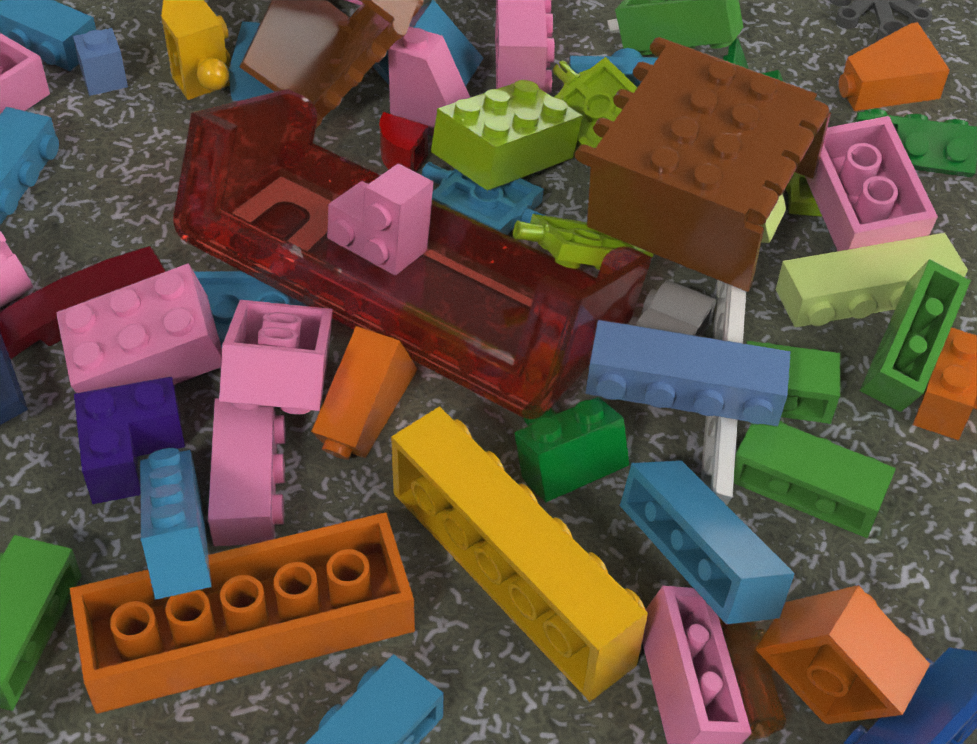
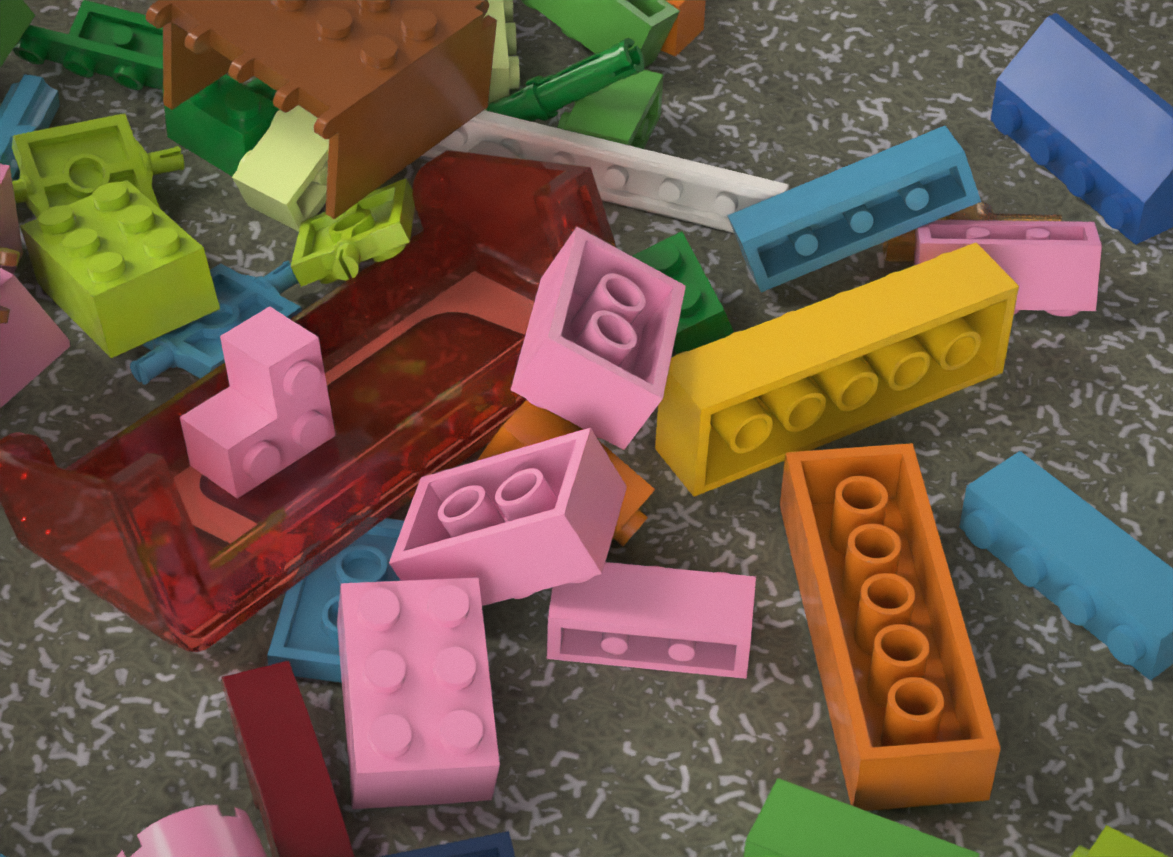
camera: 80 degrees left, 5 degrees down
(118, 427) = (575, 749): dark purple brick -> none
(173, 524) = (779, 640): dark azure brick -> none
(402, 142) = (72, 395): red brick -> none
(444, 357) = (600, 339): none -> bright pink brick
(688, 373) = (642, 148): medium blue brick -> none
(784, 329) = (546, 95): none -> green pin
(813, 475) = (756, 122): bright green brick -> none
(843, 656) = (1019, 136): orange brick -> none

